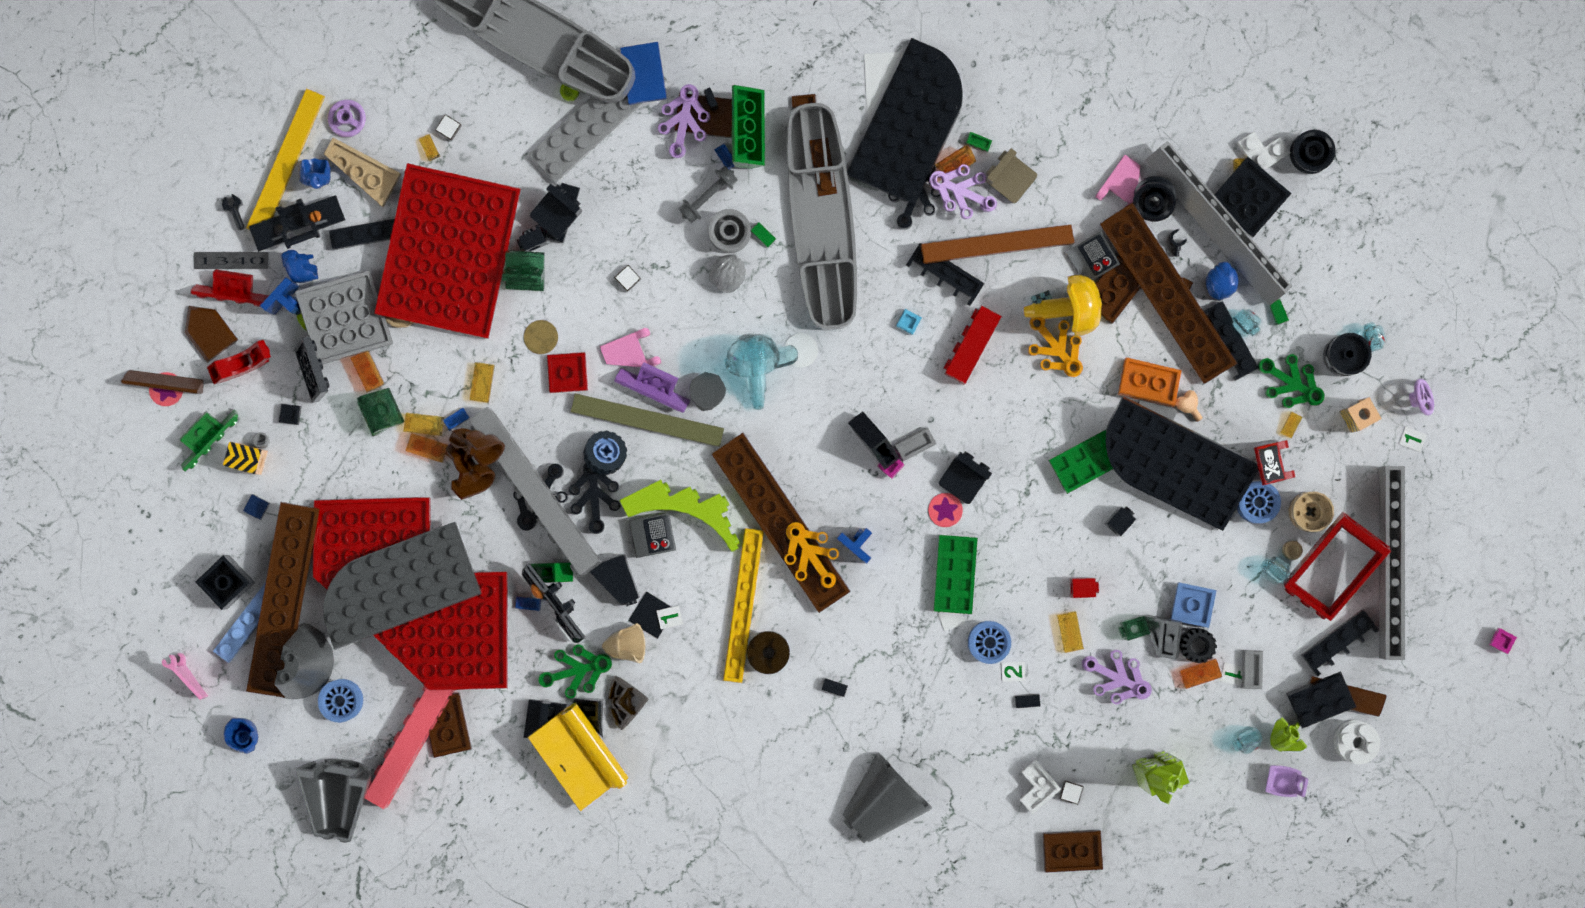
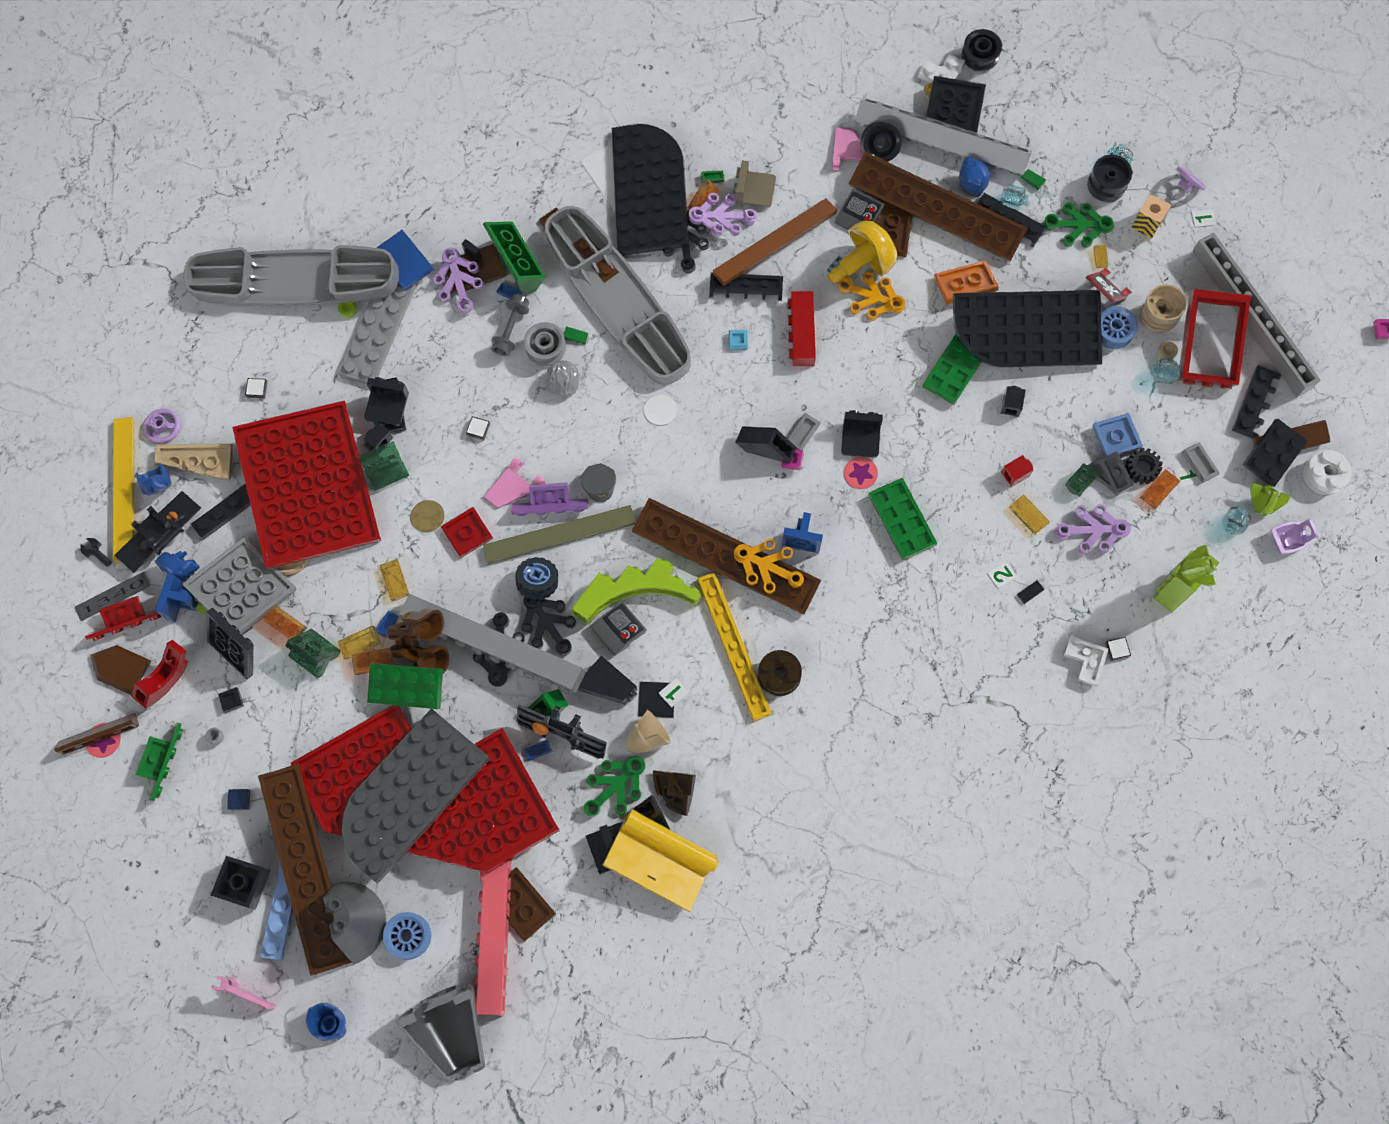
camera: 25 degrees left, 15 degrees down
(245, 458) = (206, 758): piece -> none
(429, 147) = (247, 412): clear yellow piece -> none
(442, 489) = (405, 686): none -> green plate
(753, 358) = (622, 426): clear light blue piece -> none
(834, 687) = (855, 673): black piece -> none
(882, 802) = (961, 747): dark grey cone -> none
(979, 655) = (957, 573): medium blue wheel -> none
(1072, 851) = (1152, 700): reddish brown tile -> none
(1176, 246) = (918, 171): black piece -> none
(1189, 404) = (1008, 283): light nougat rock -> none

